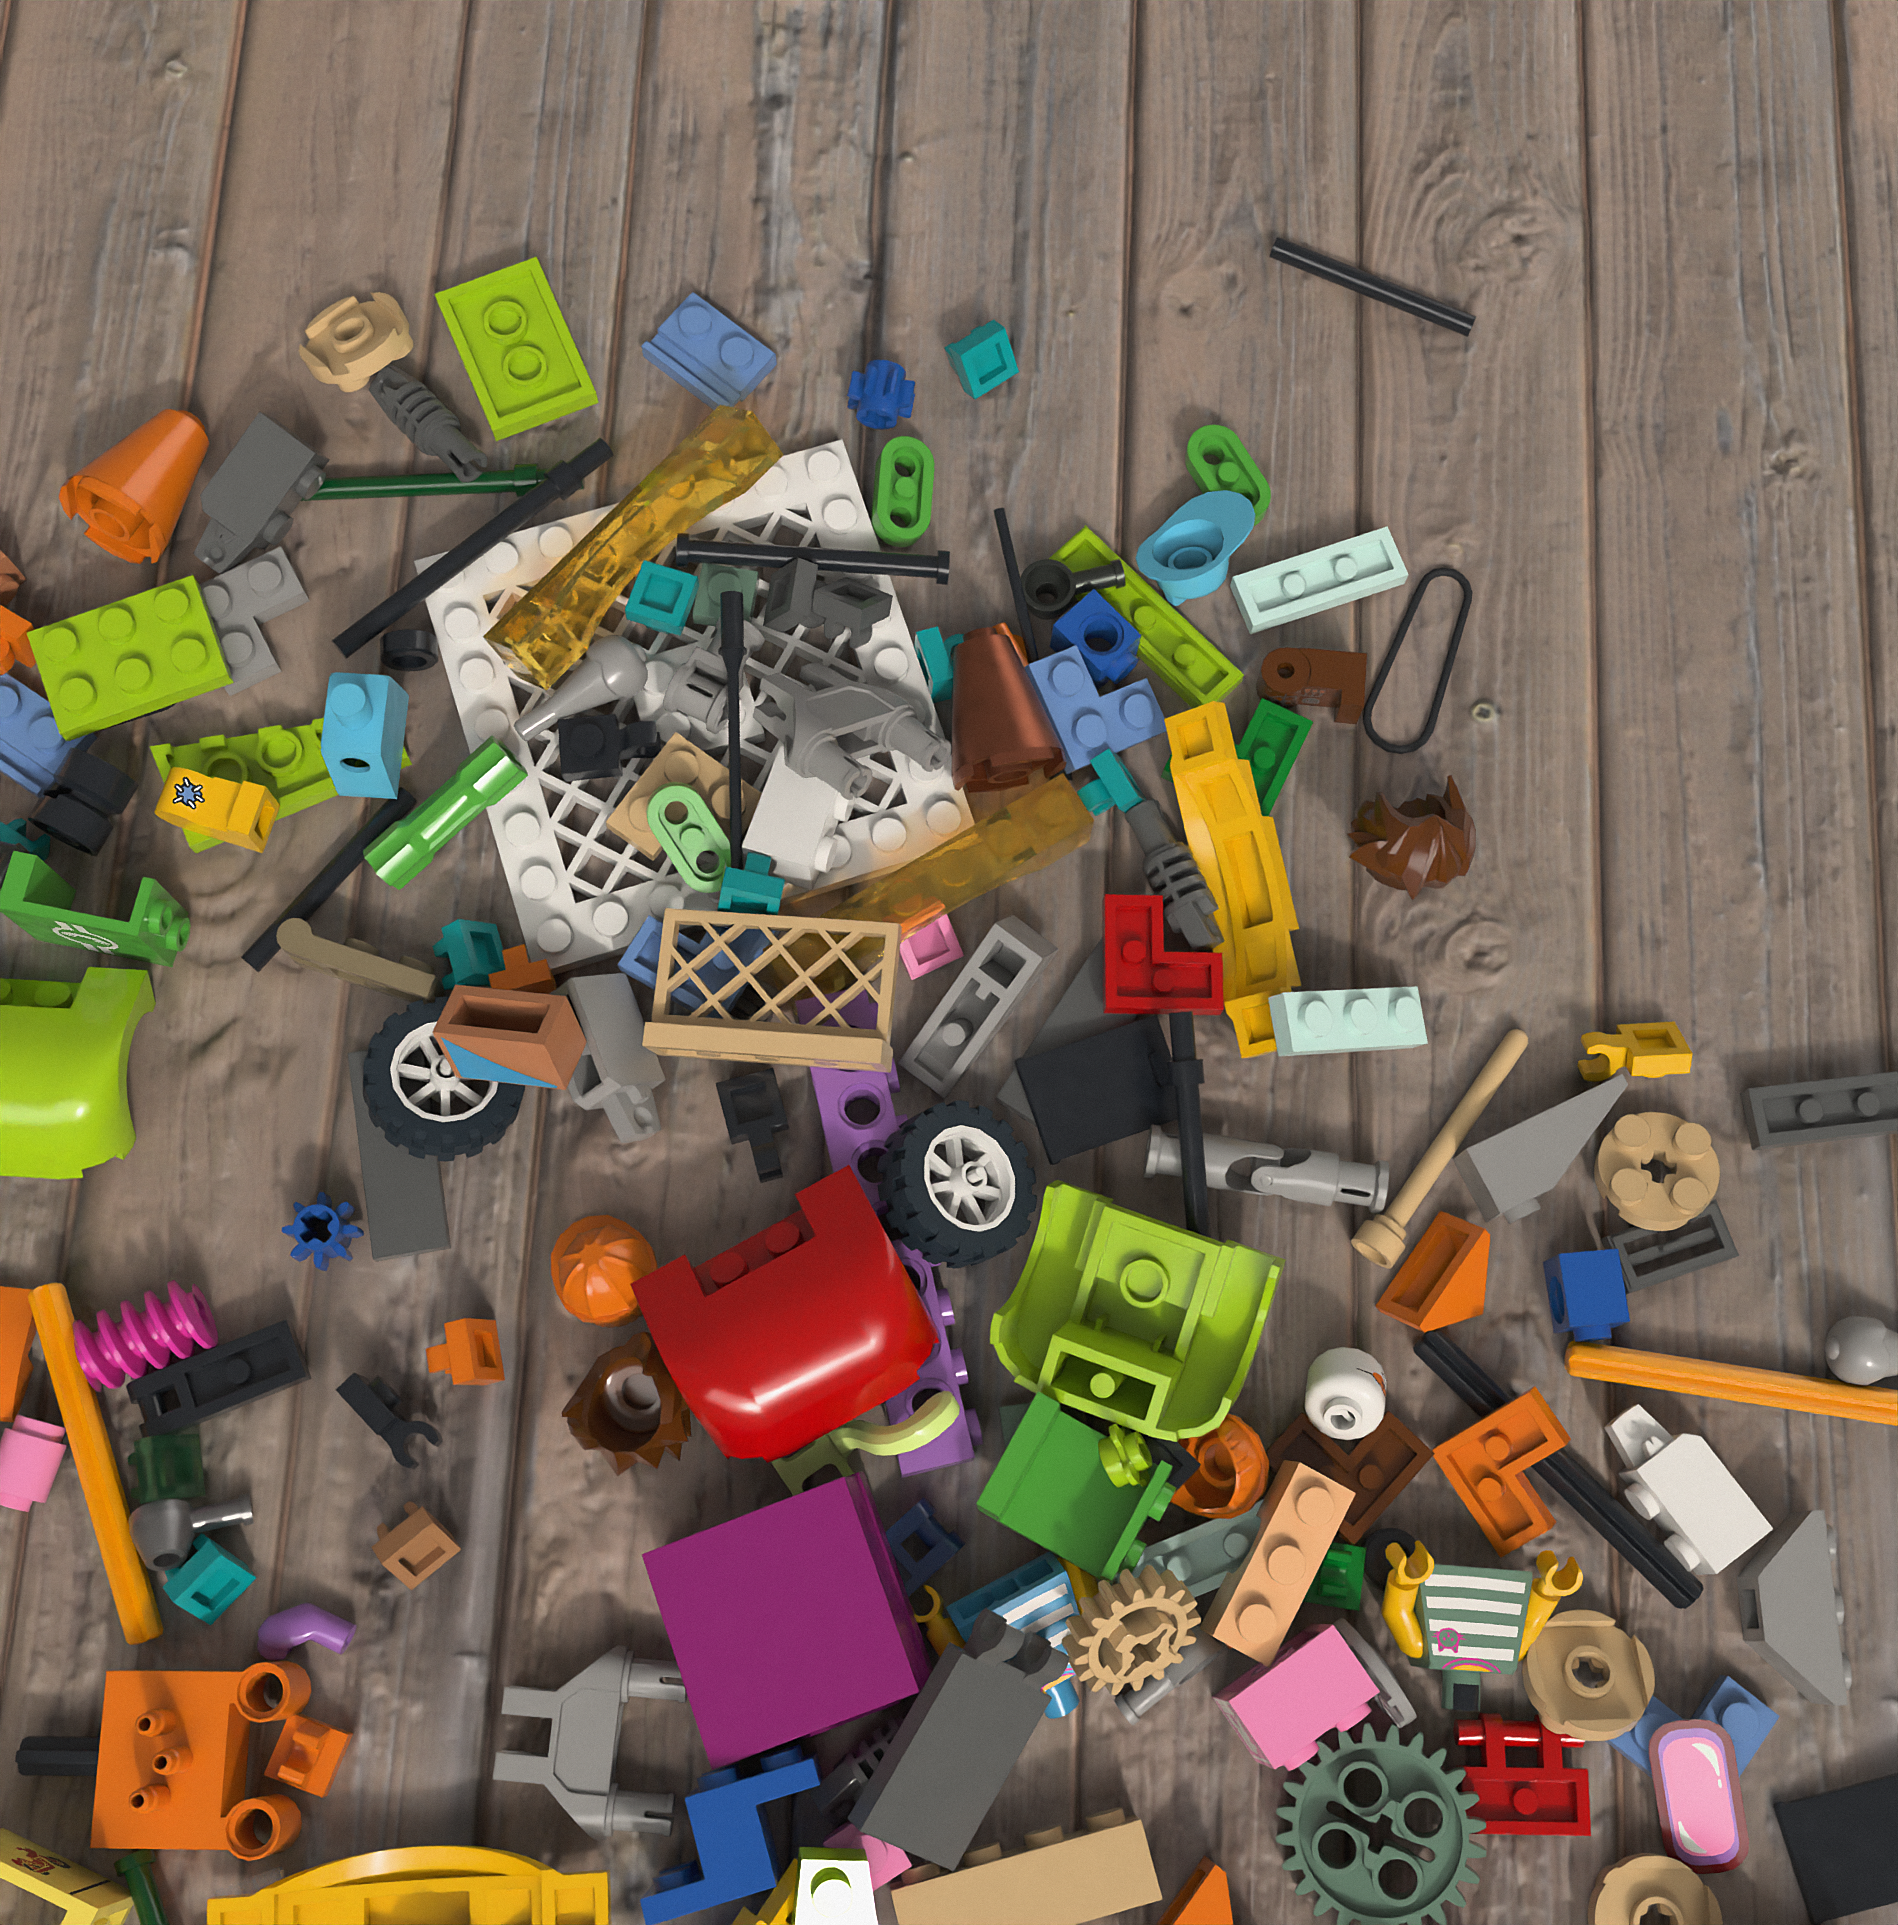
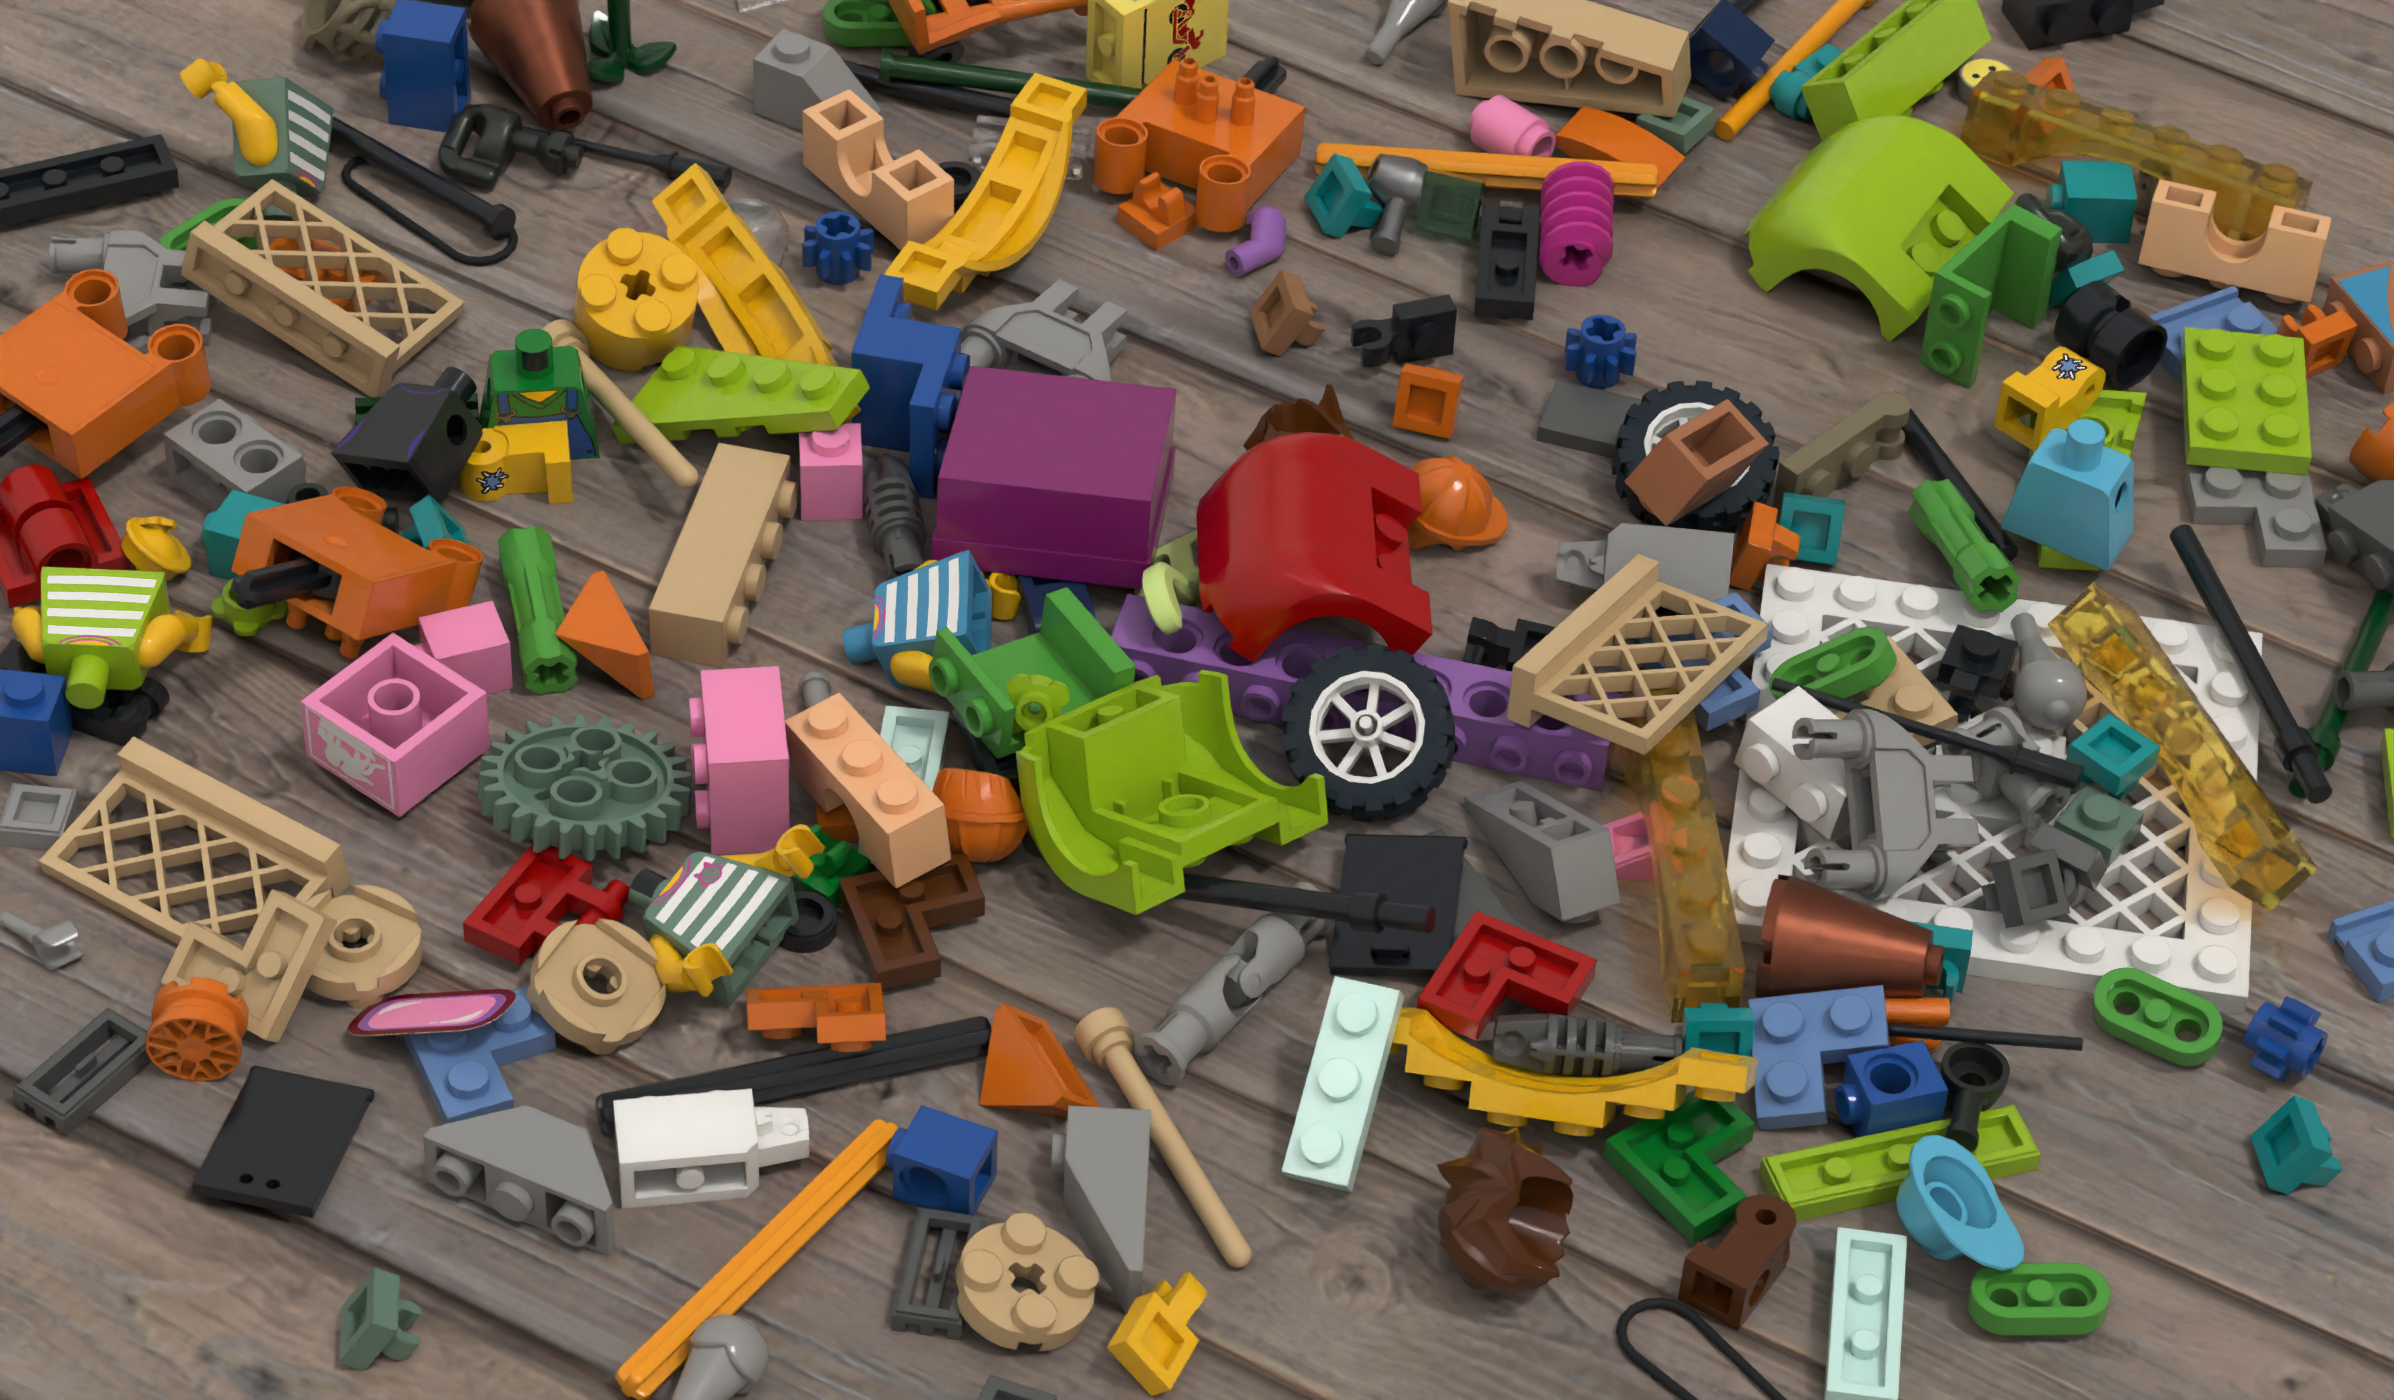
camera: 120 degrees right, 30 degrees down
(409, 650) = (2160, 590): black tile -> none
(751, 888) = (1749, 681): teal tile -> none
(827, 559) = (2045, 993): black bar -> none
(959, 1741) = (874, 508): dark grey tile -> none
(1131, 1630) = (885, 651): tan gear -> none
(1345, 1393) = (979, 926): white head -> none
(1391, 1697) = (722, 822): light grey wheel -> none

